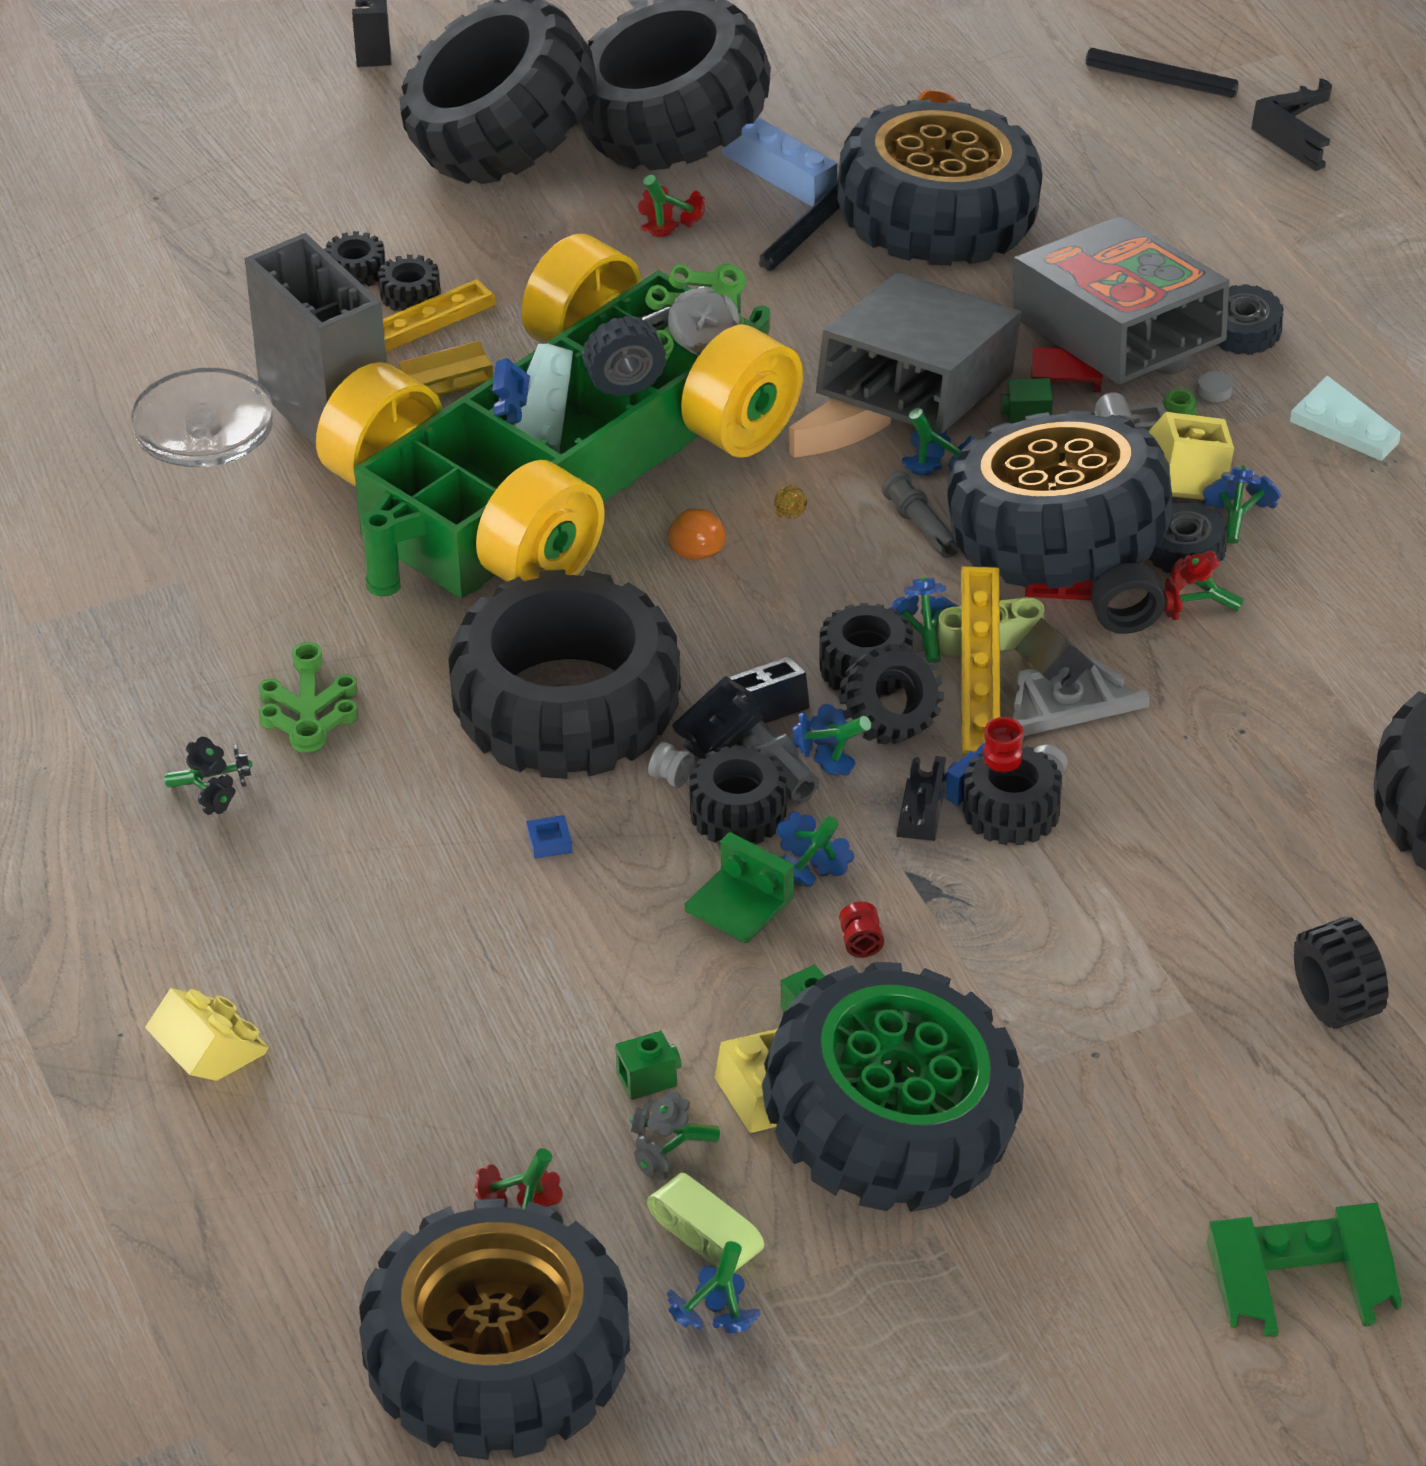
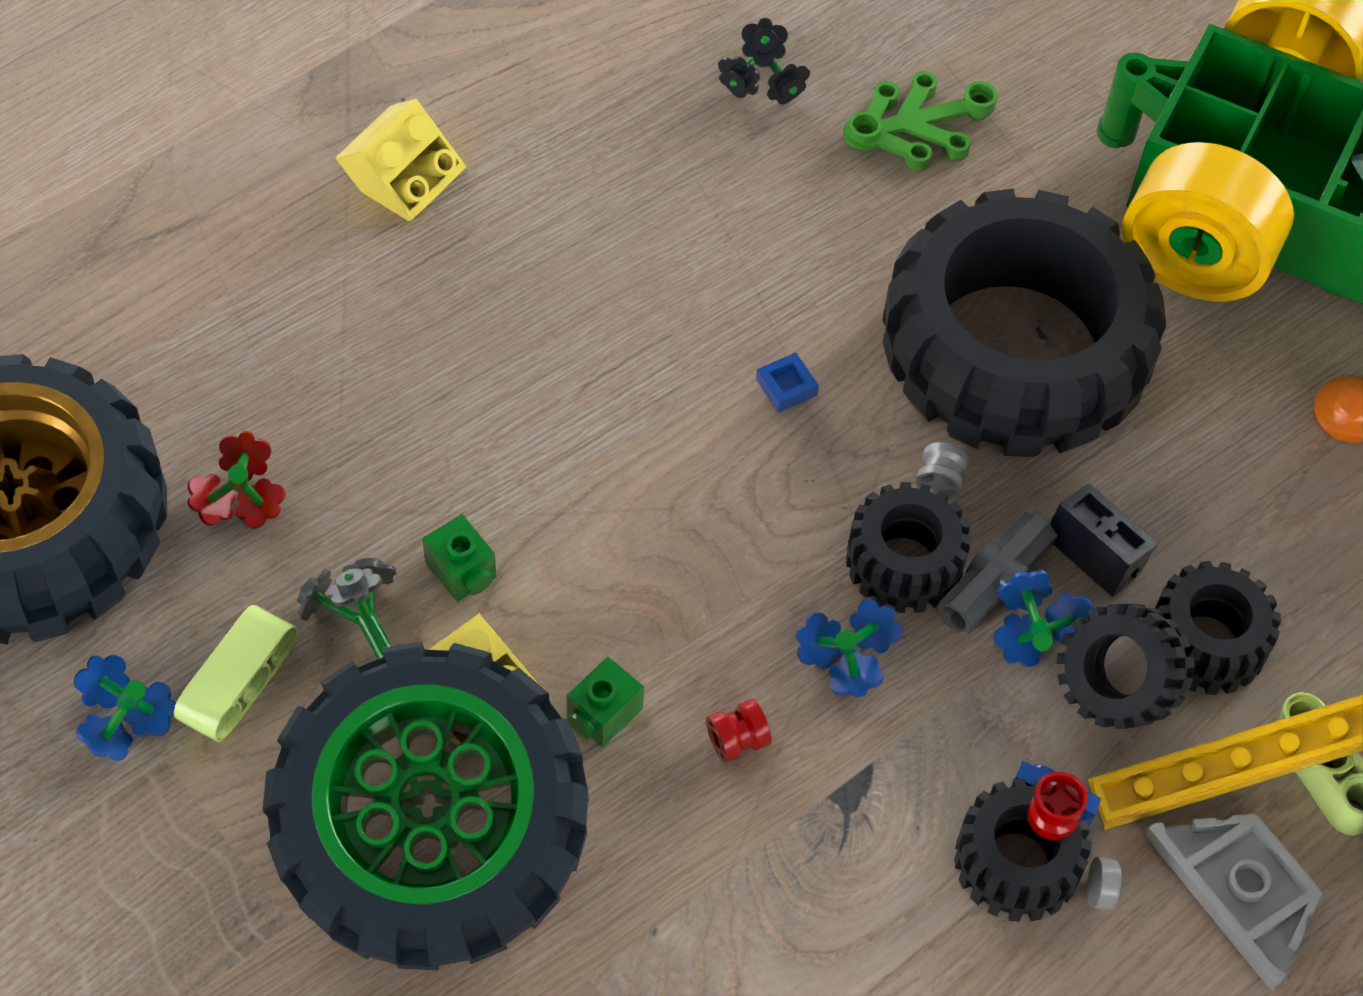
camera: 70 degrees right, 15 degrees up
(718, 718) = (1017, 495): black hinge -> none
(744, 891) = (754, 590): green bracket -> none
(922, 801) = (983, 754): black hinge -> none
(930, 610) = (1309, 656): plant -> none
(1051, 651) = (1296, 846): black hinge -> none

